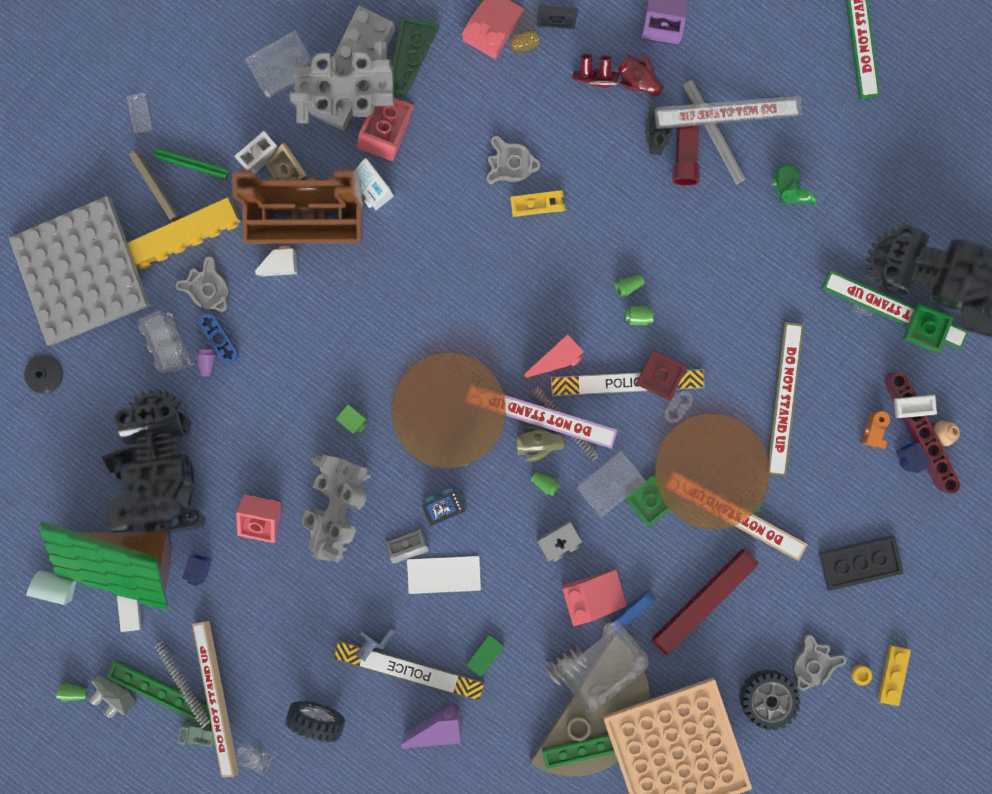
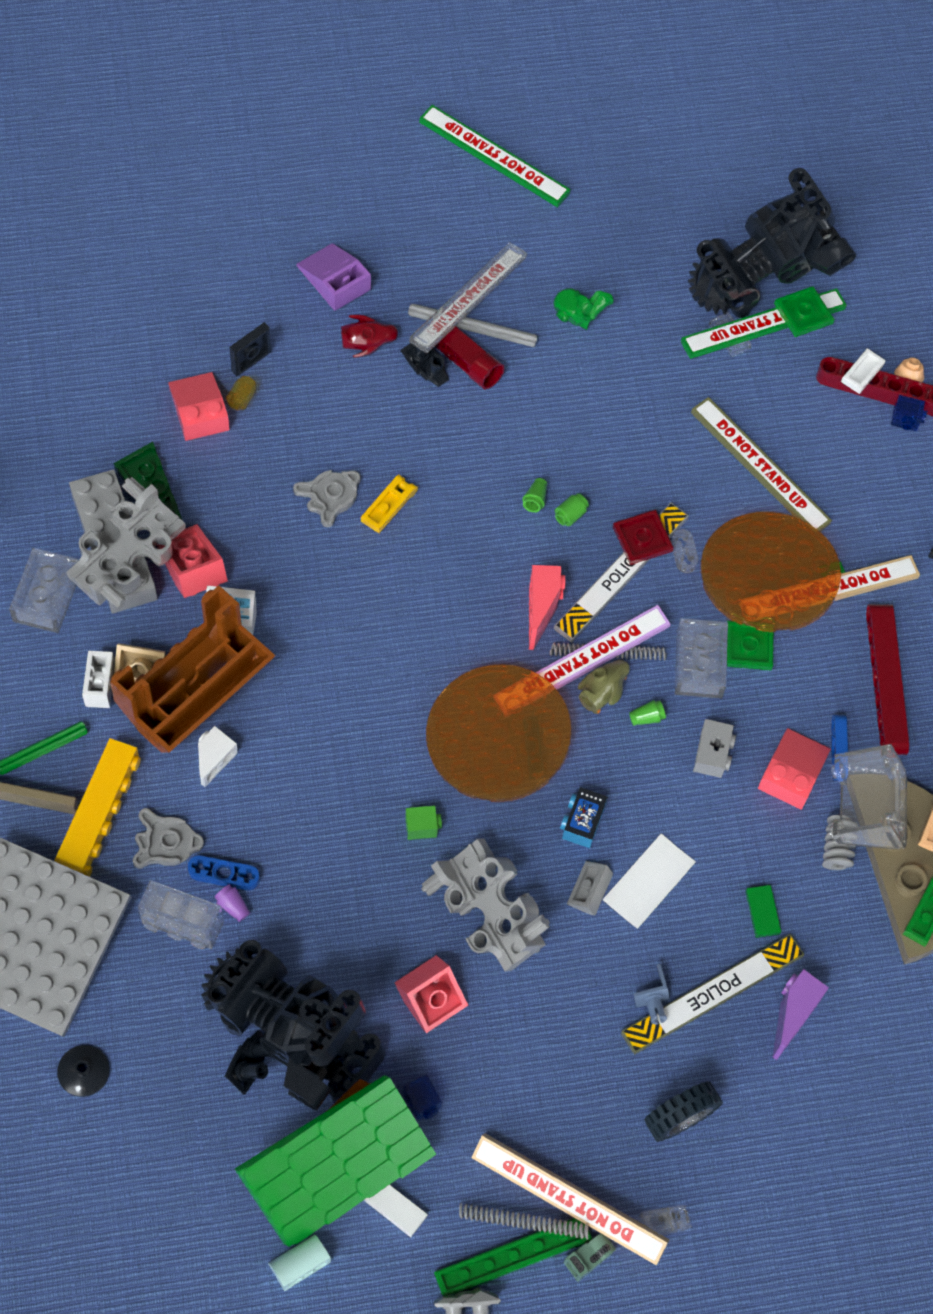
camera: 55 degrees left, 25 degrees down
(601, 78) = (337, 362): dark red connector -> none
(875, 430) = (856, 421): orange leg -> none

